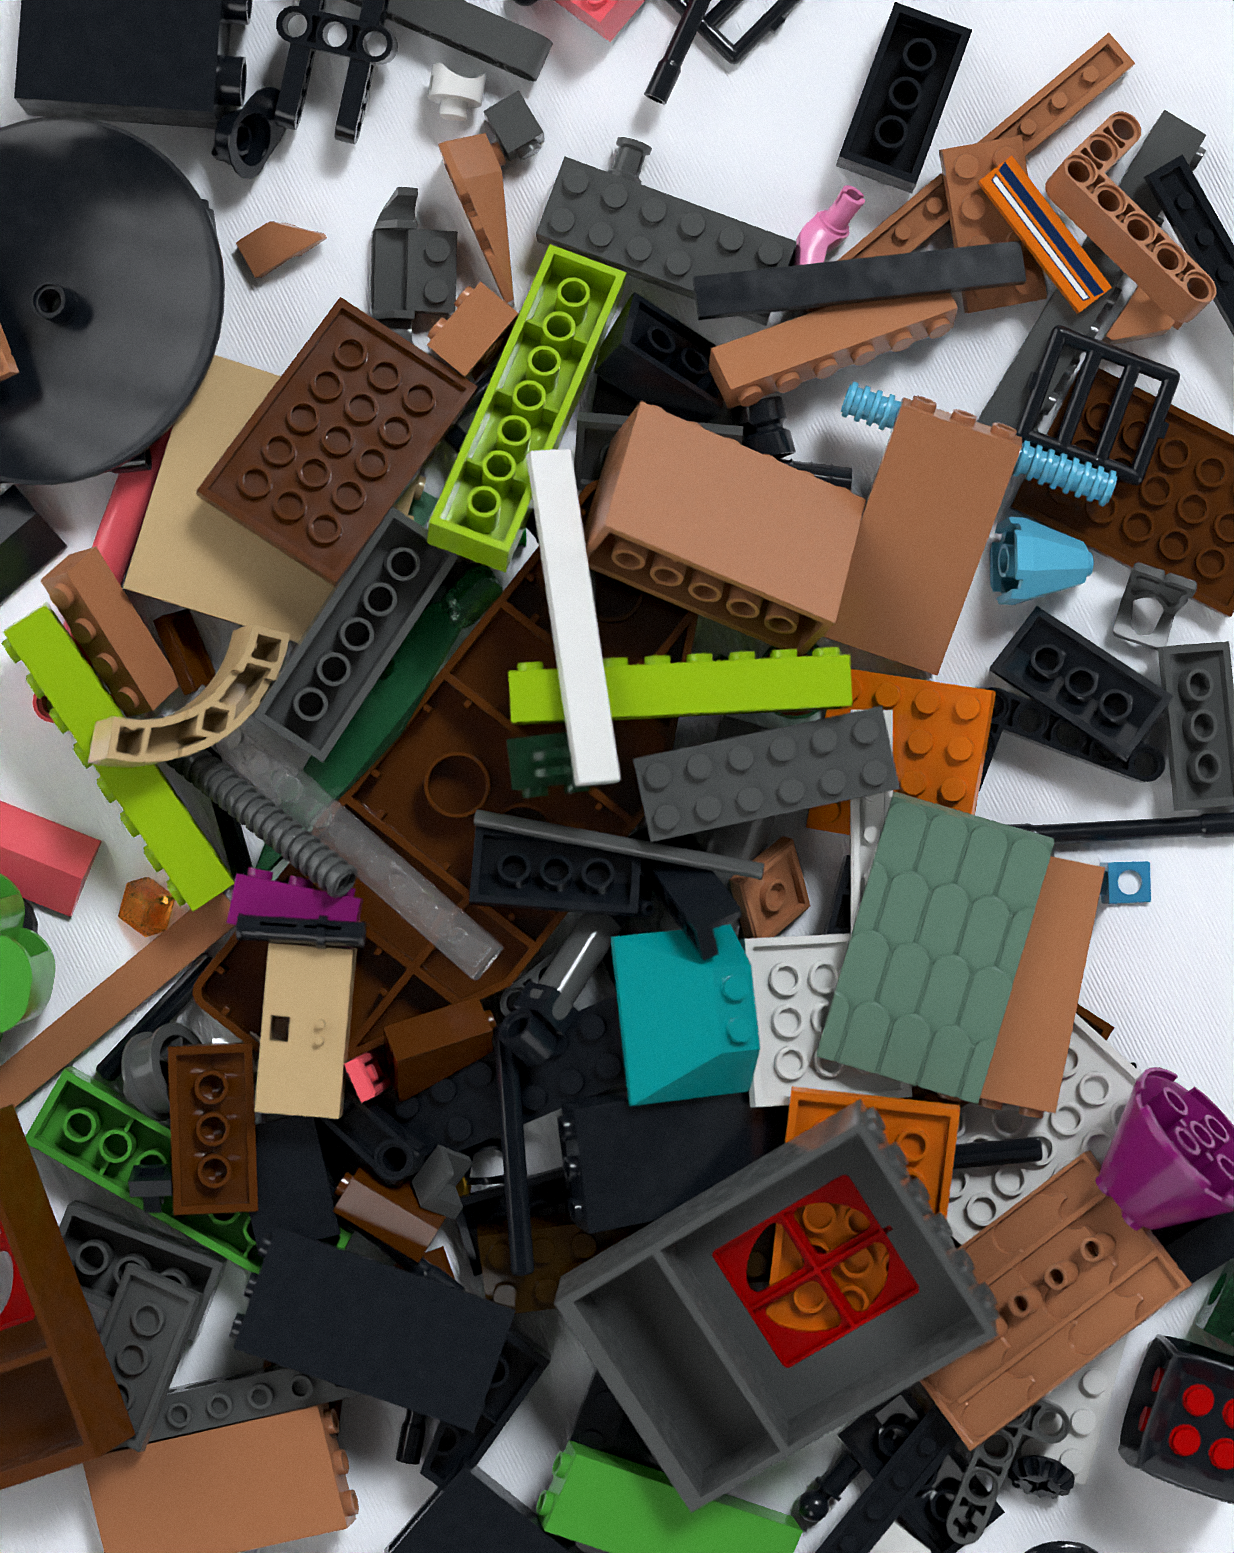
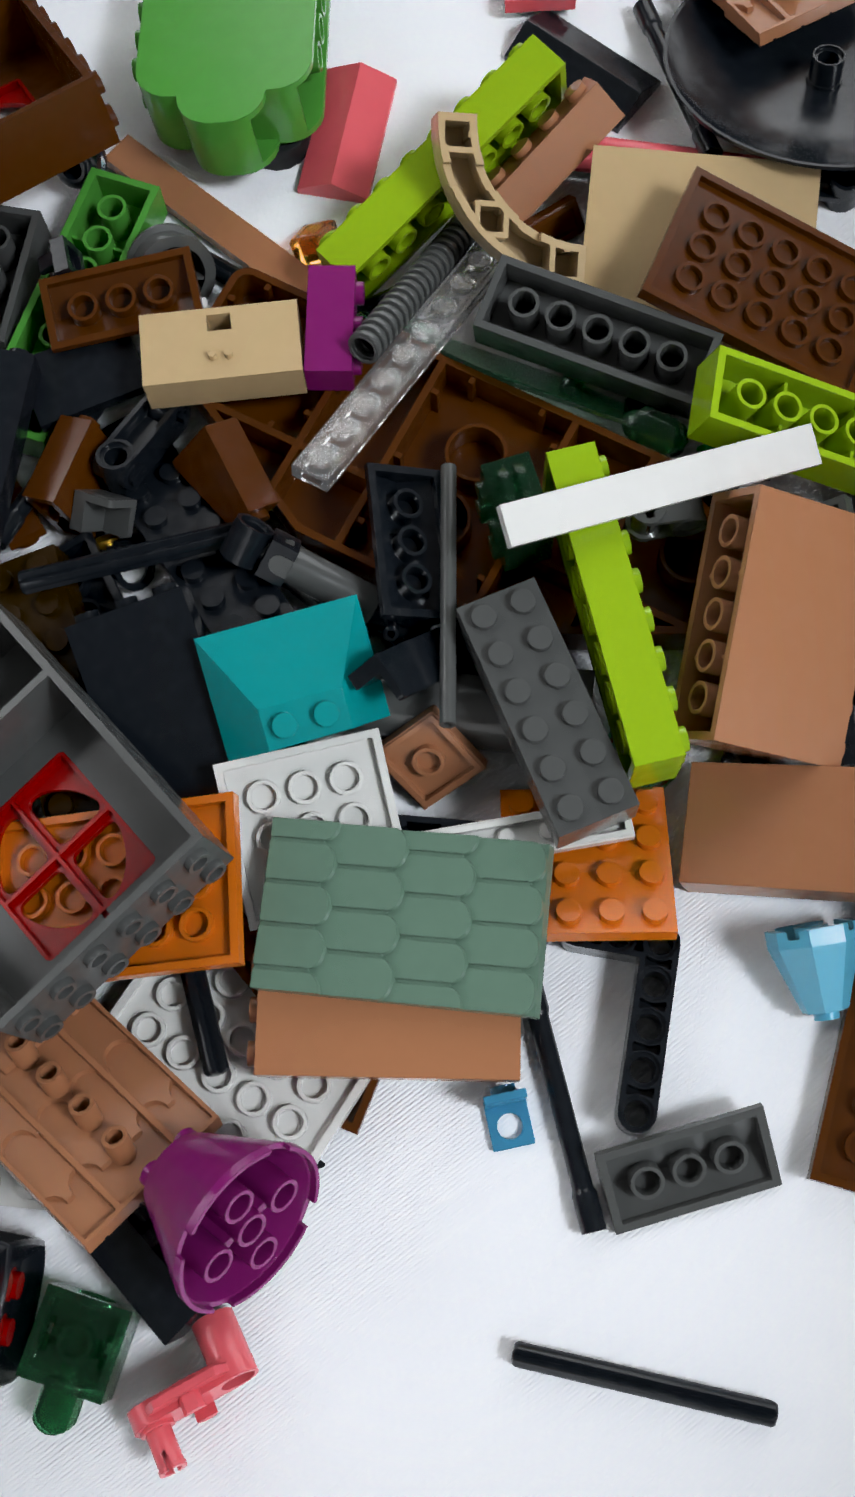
camera: 85 degrees right, 15 degrees down
(301, 930) = (313, 334): black pin -> none
(368, 1073) = (187, 413): coral tile -> none
(1081, 683) = (703, 1032): black slope -> none
(1150, 582) = (824, 1080): dark grey piece -> none

